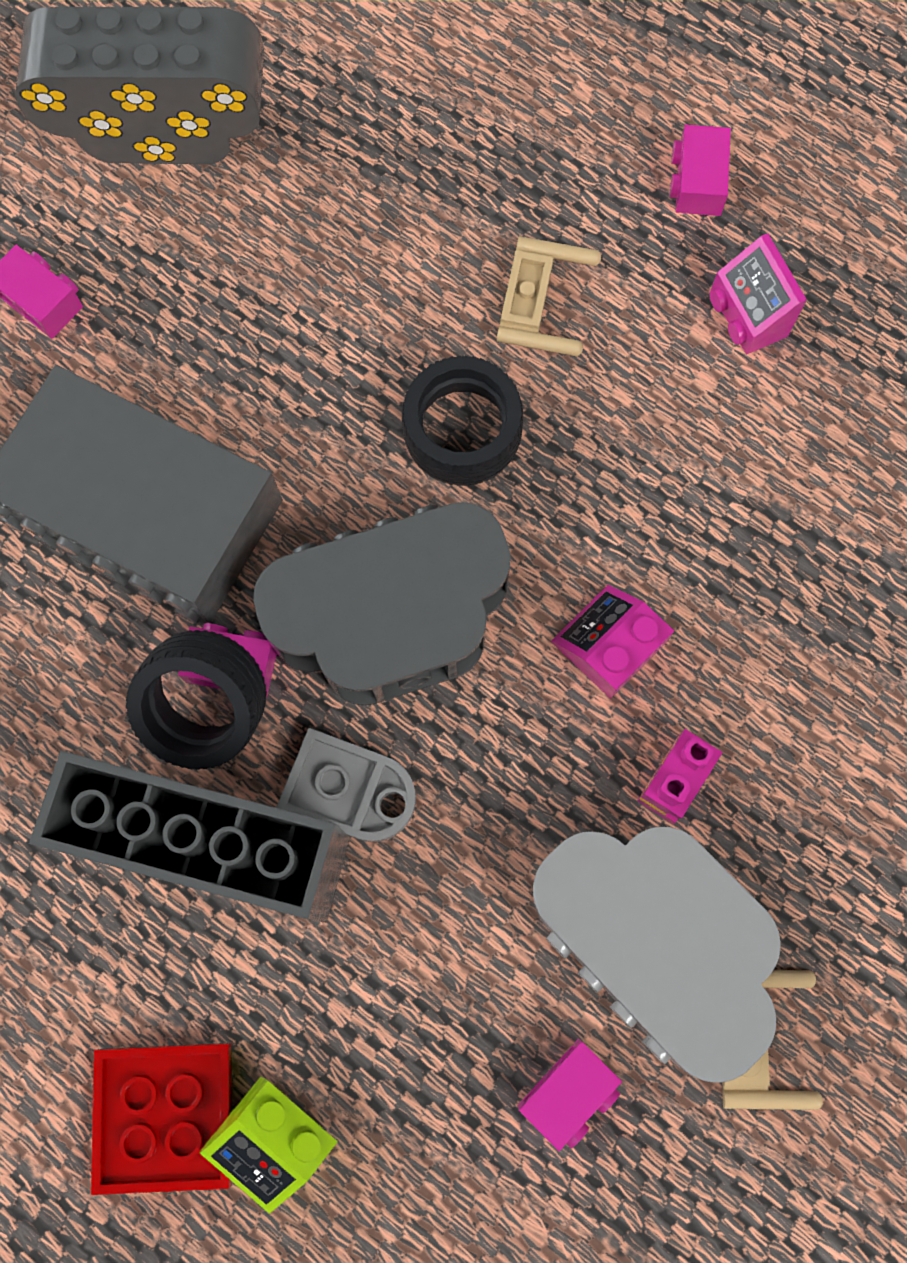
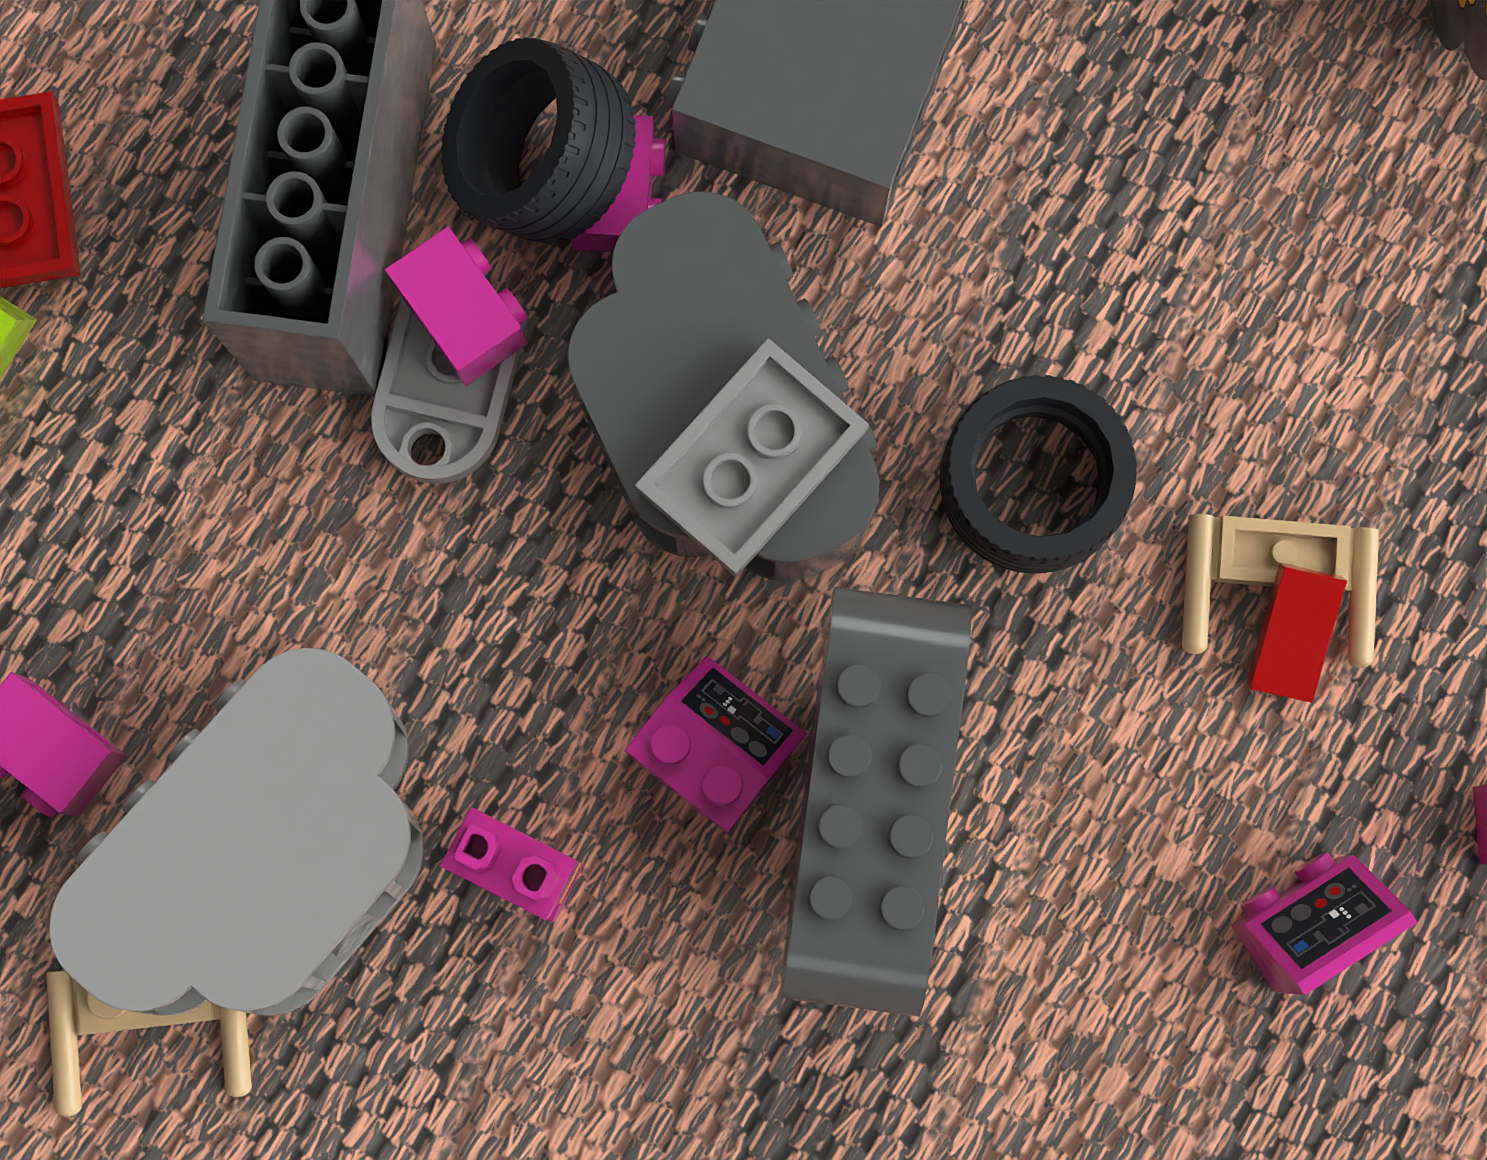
camera: 80 degrees right, 5 degrees up
(300, 767) = (458, 305): none -> dark pink brick
(442, 574) = (752, 457): none -> light grey plate
(577, 289) = (1296, 632): none -> red tile
(673, 528) = (876, 802): none -> dark grey brick

